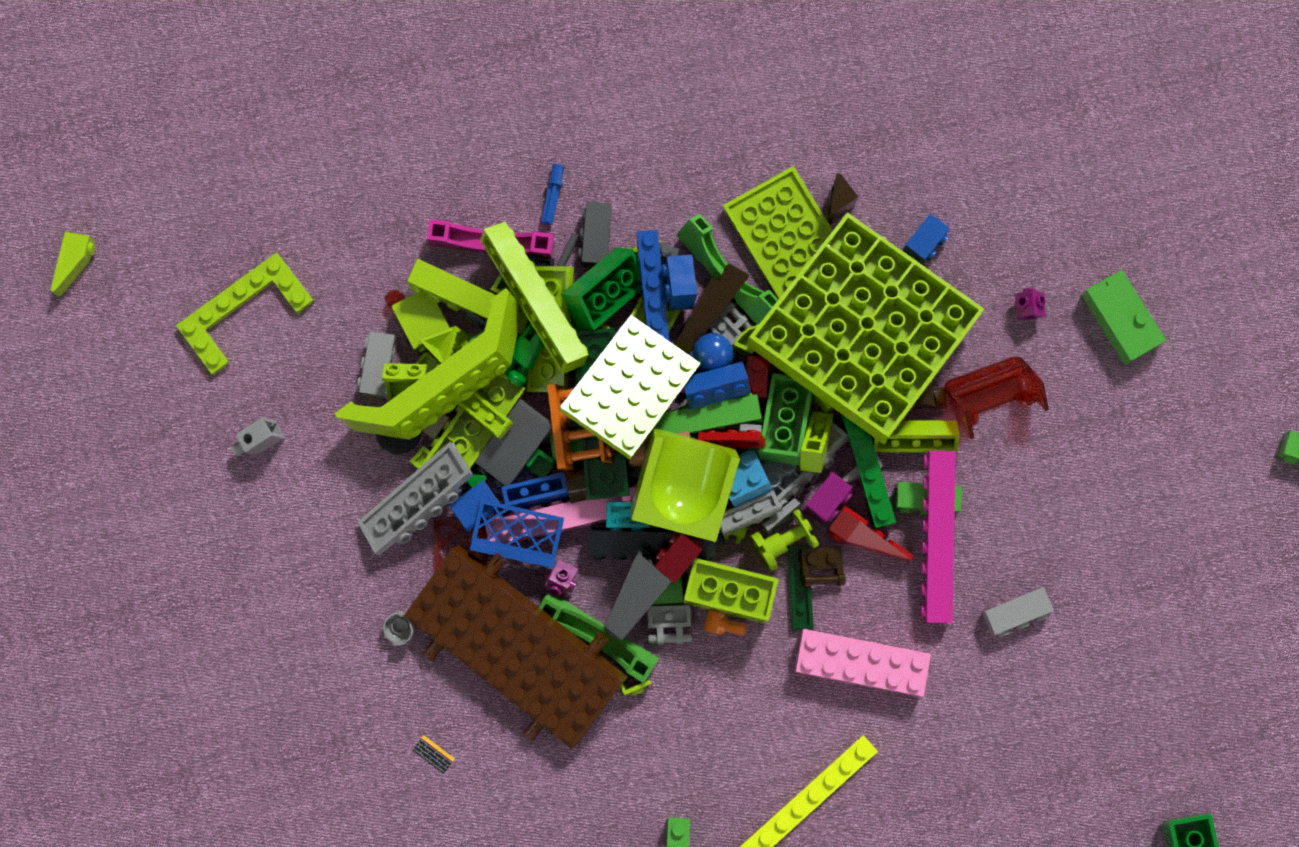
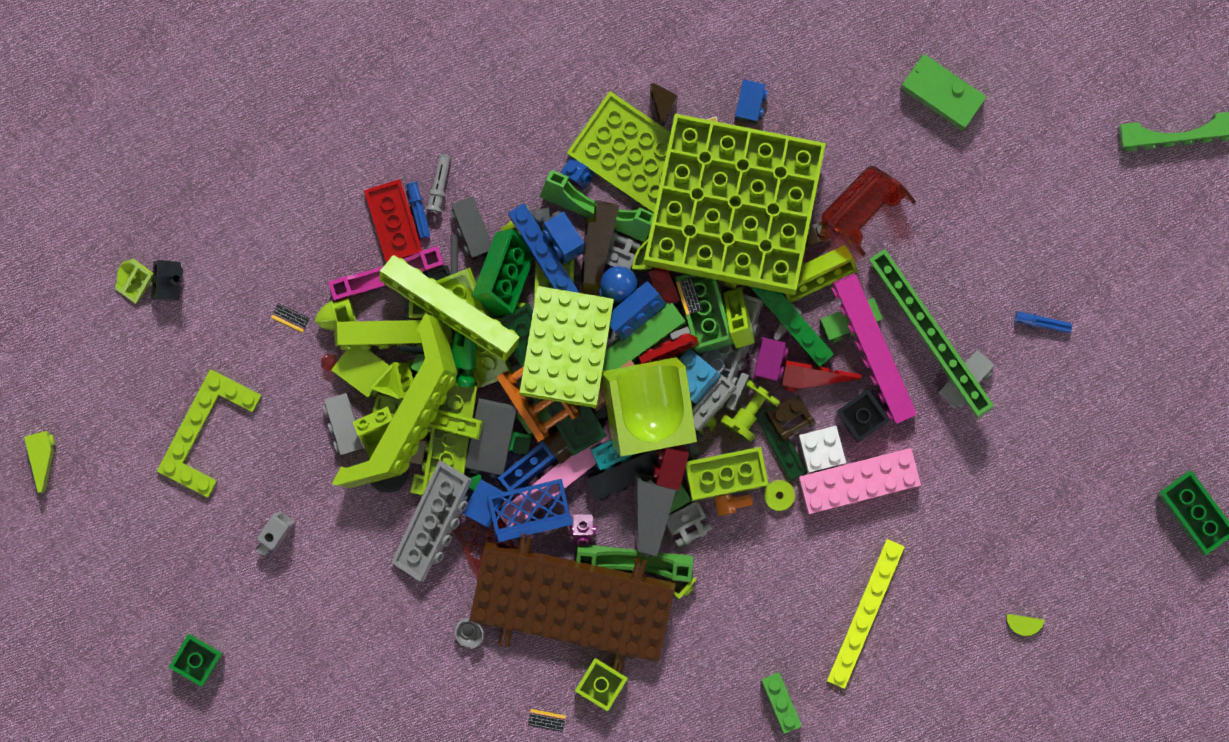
camera: 30 degrees left, 5 degrees up
(118, 526) = (196, 660): none -> green brick
(247, 134) = (133, 279): none -> lime slope
(277, 148) = (166, 280): none -> black brick
(379, 240) = (290, 317): none -> black sticker
(426, 251) = (335, 312): none -> lime helmet
(504, 744) = (601, 684): none -> lime brick
(523, 191) = (393, 220): none -> red plate
(578, 186) = (437, 193): none -> light grey pin
(725, 230) = (578, 172): none -> blue bracket
(777, 396) = (688, 296): none -> black sticker
(781, 632) = (783, 487): none -> lime piece
(839, 613) = (821, 449): none -> white brick
(895, 598) = (862, 416): none -> black brick
(1004, 550) = (931, 334): none -> bright green brick
(1030, 304) = (861, 117): magenta brick -> none
(1114, 585) = (1034, 320): none -> blue axle

